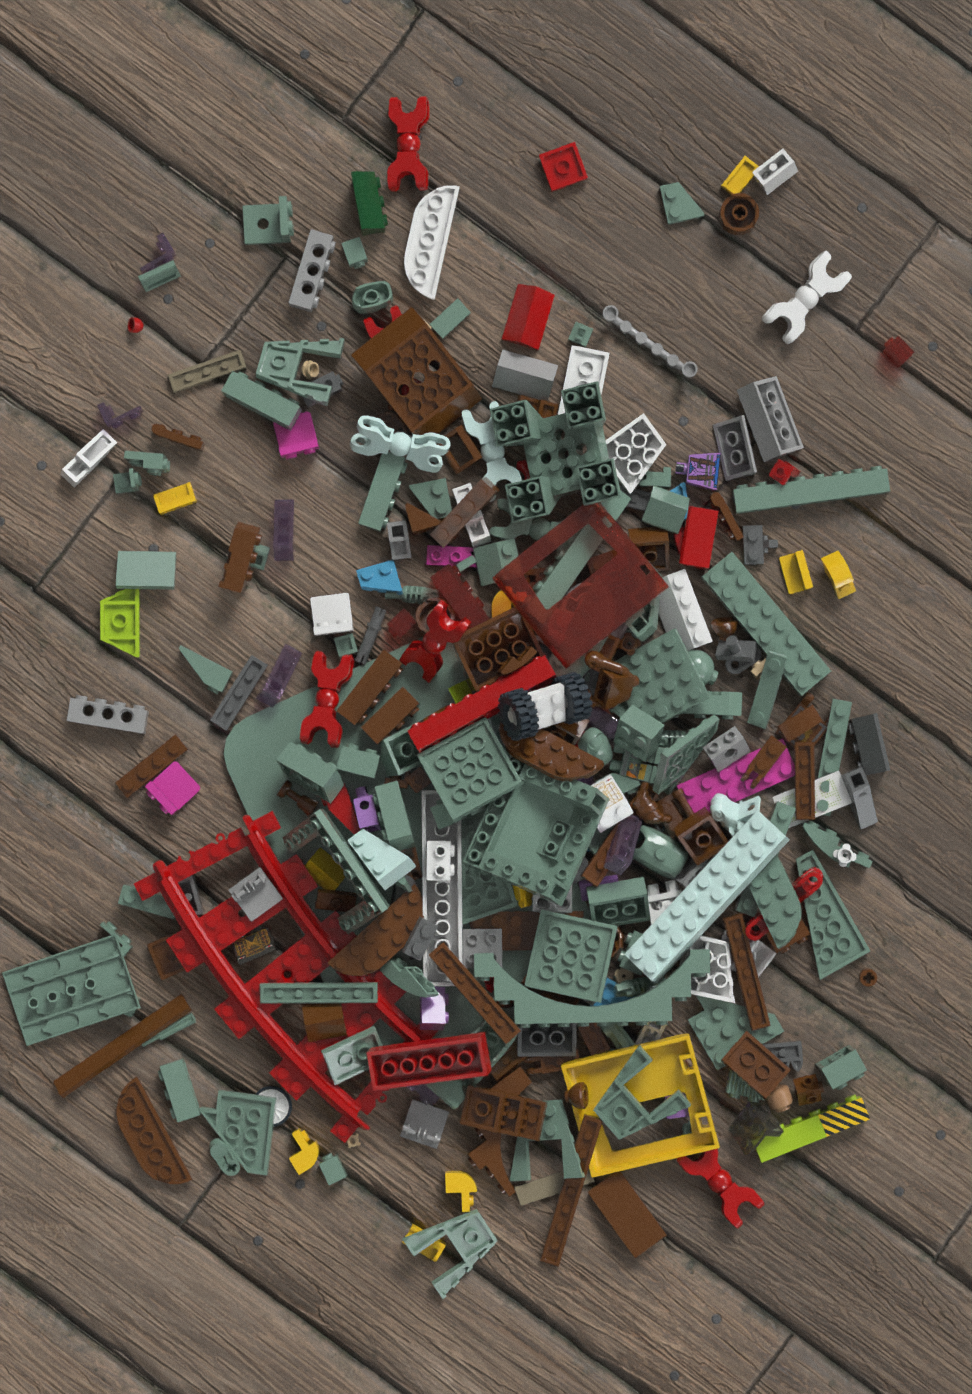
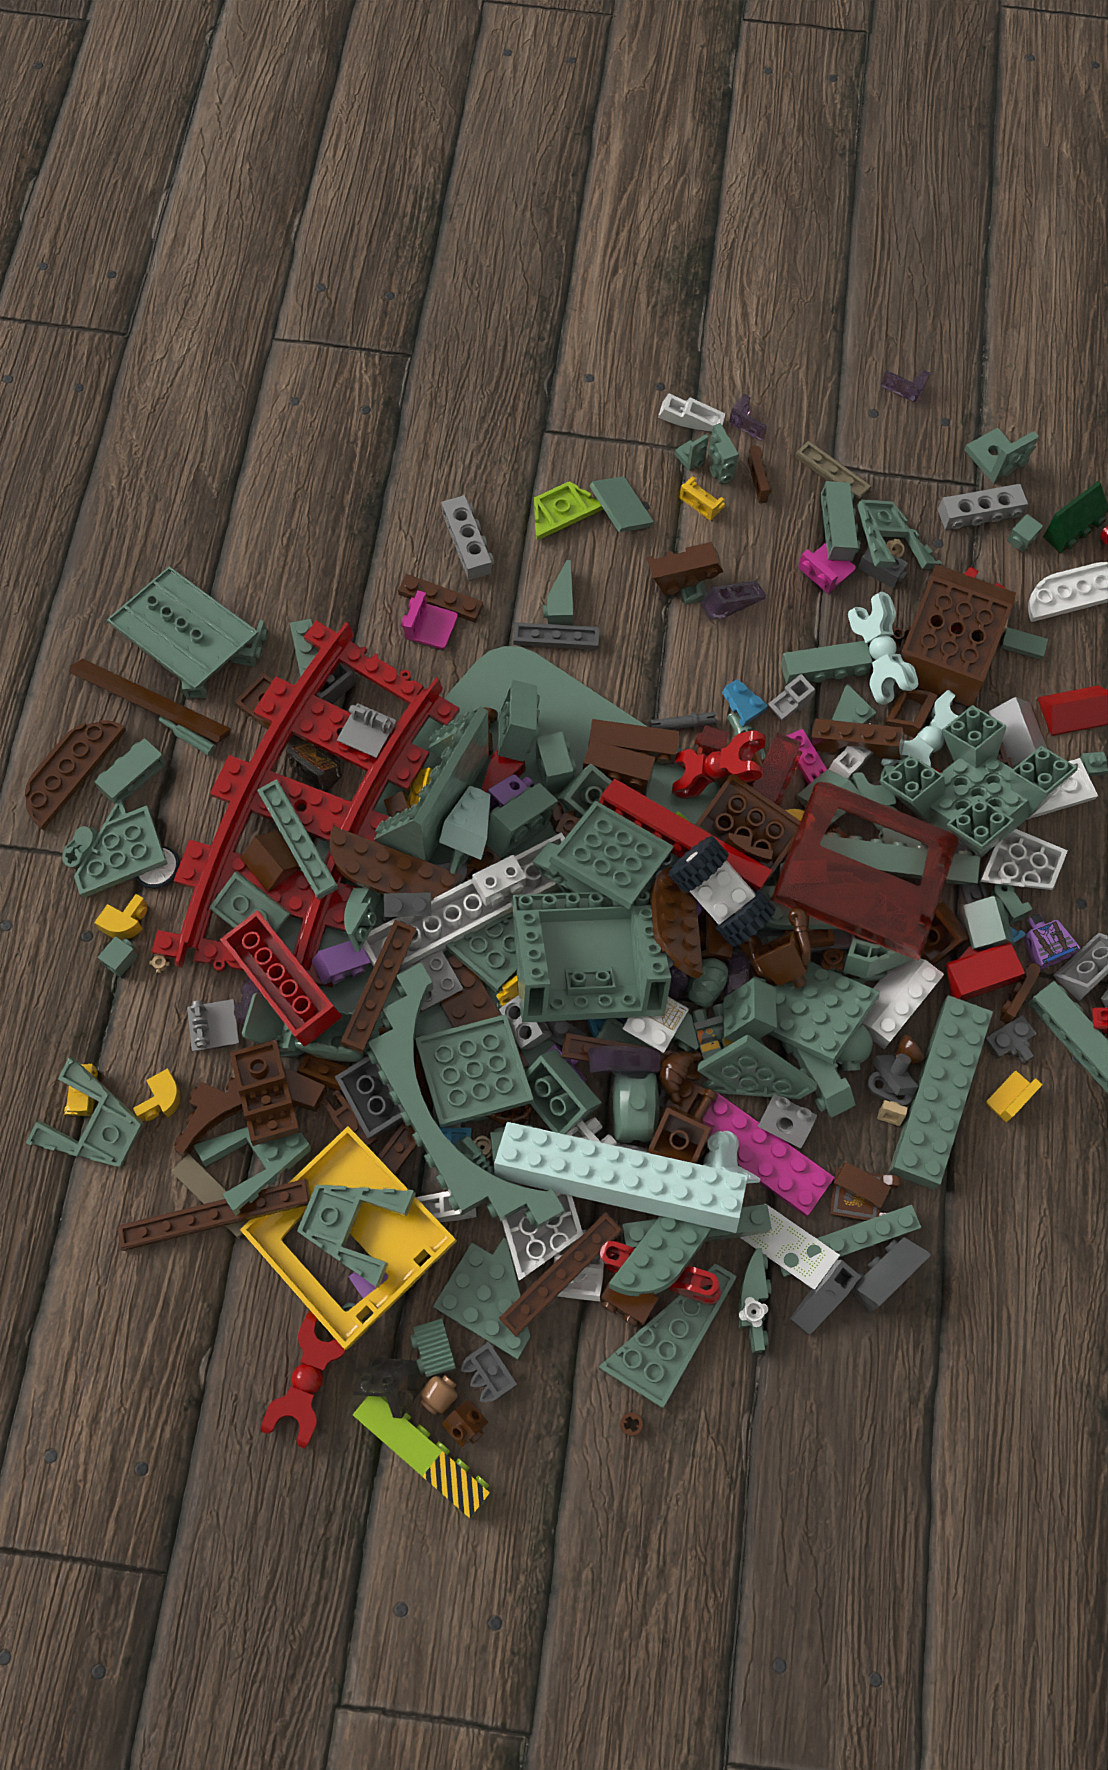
camera: 60 degrees right, 20 degrees down
(135, 325) = (834, 396): red hinge -> none
(159, 276) = (889, 392): sand green tile -> none
(279, 676) = (592, 660): clear purple slope -> none
(326, 699) = (615, 704): red piece -> none
(331, 614) = (680, 678): white bracket -> none
(345, 645) = (660, 704): sand green plate -> none
(372, 297) = (996, 565): sand green piece -> none
(419, 520) = (822, 702): reddish brown slope -> none
(466, 563) = (809, 766): sand green tile -> none
(578, 1095) = (324, 1160): reddish brown brick -> none
(617, 1035) = (415, 1170): sand green piece -> none
(627, 1213) = (217, 1294): reddish brown slope -> none
(755, 1065) = (461, 1342): reddish brown plate -> none
(764, 760) = (800, 1167): reddish brown hinge -> none
(767, 689) = (876, 1128): sand green plate -> none
(804, 781) = (805, 1224): reddish brown tile -> none
(839, 574) = (1042, 1140): yellow brick -> none
(841, 1067) = (511, 1444): sand green brick -> none

